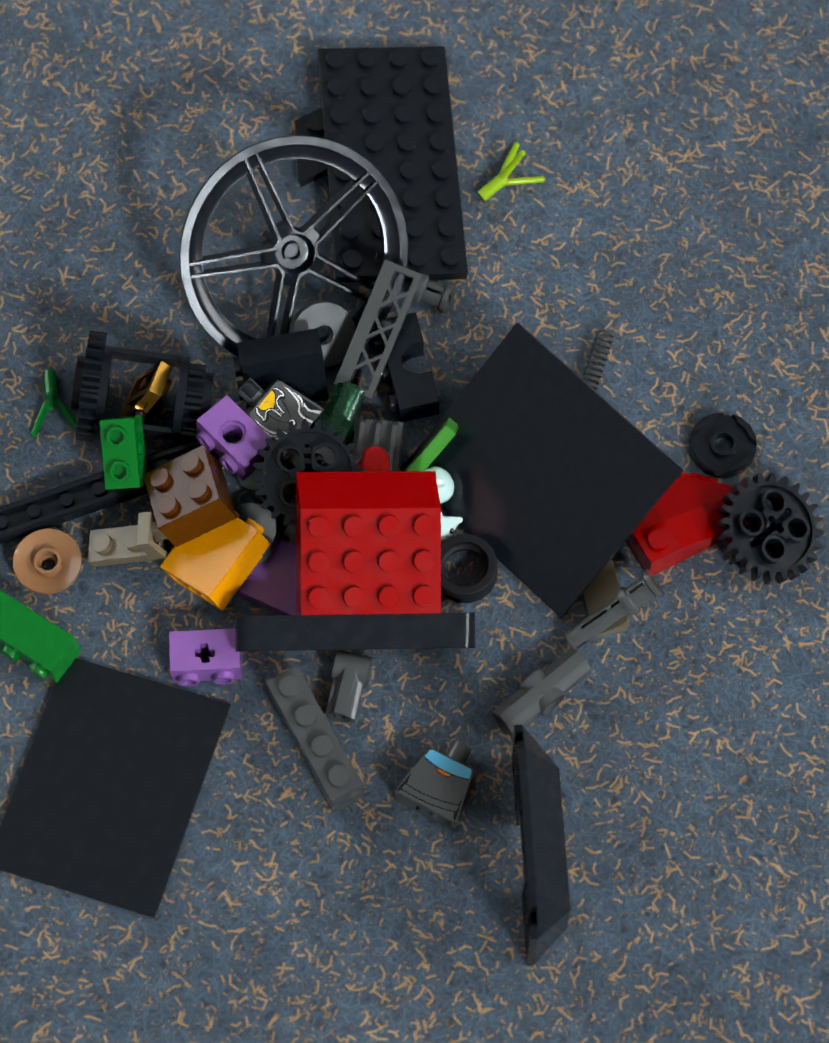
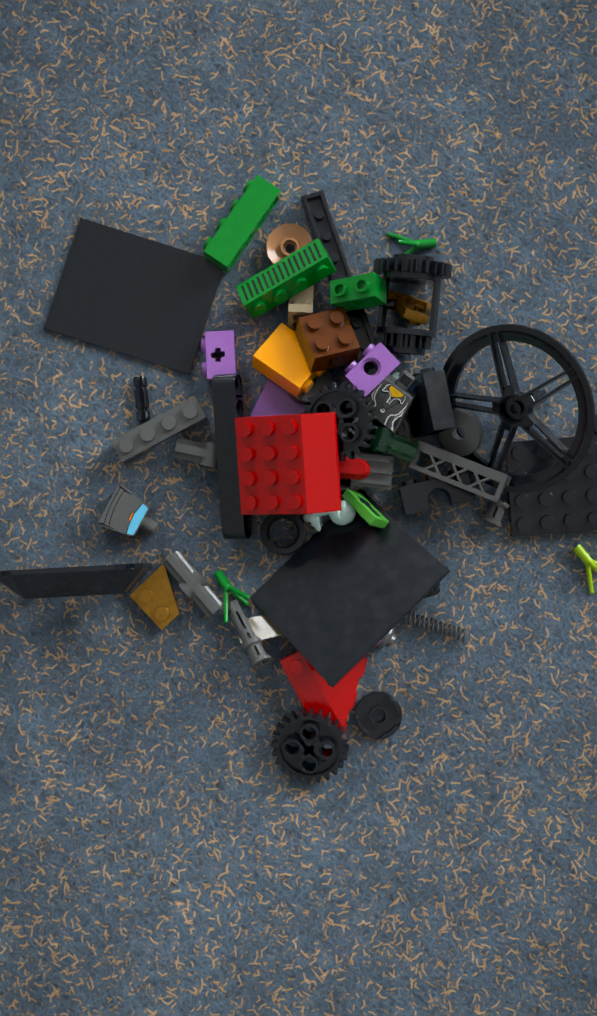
camera: 90 degrees right, 20 degrees up
(97, 558) = (286, 278): none -> green brick
(266, 770) = (141, 398): none -> black axle
(548, 642) = (227, 587): none -> green plant
(571, 743) = (157, 598): none -> pearl gold wing

